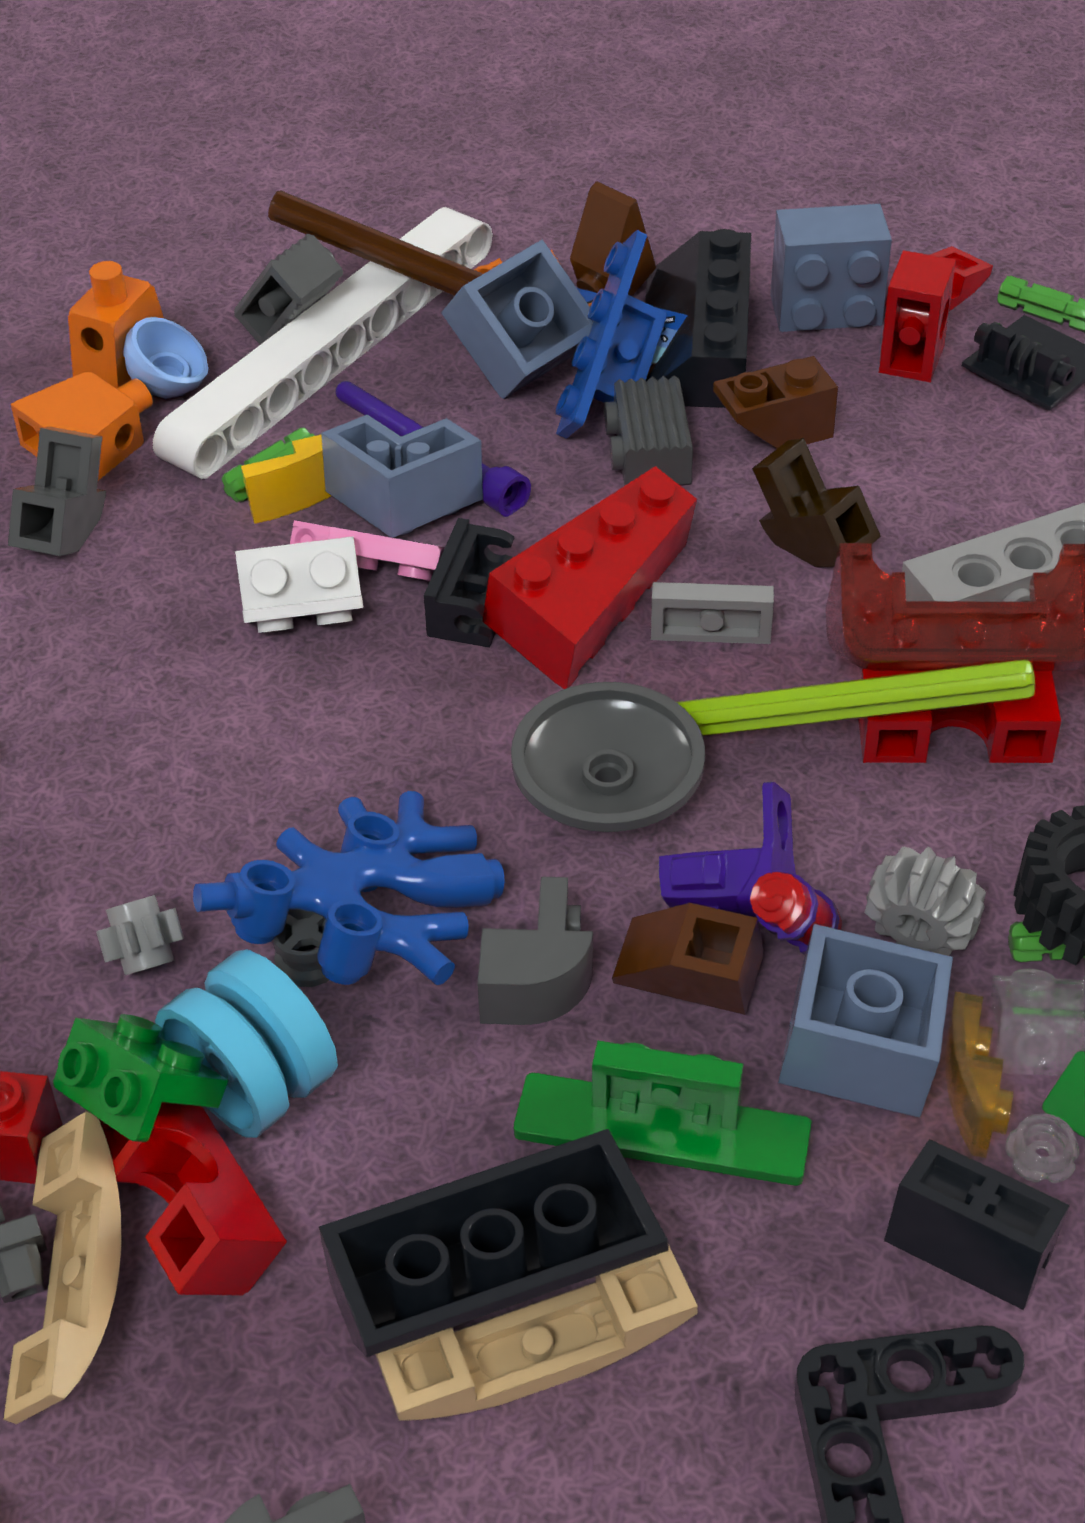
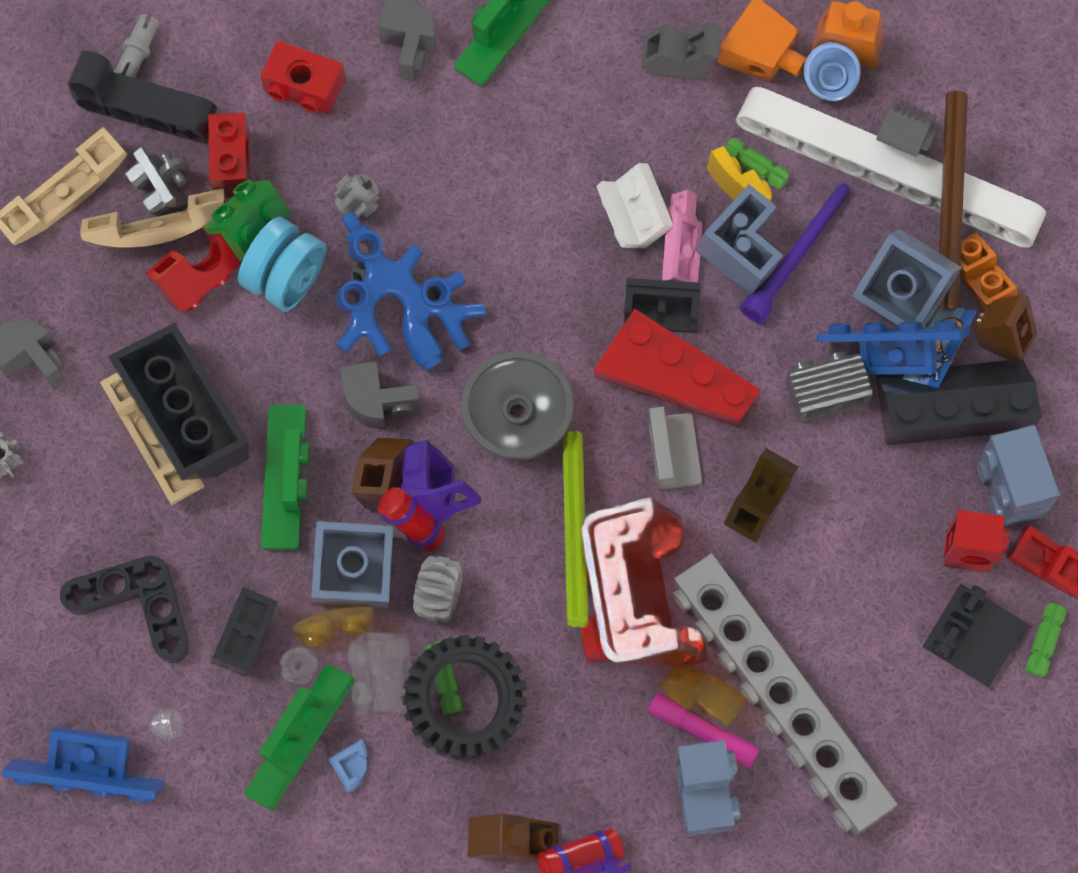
camera: 80 degrees right, 25 degrees up
(783, 401) = (866, 460): reddish brown slope -> none

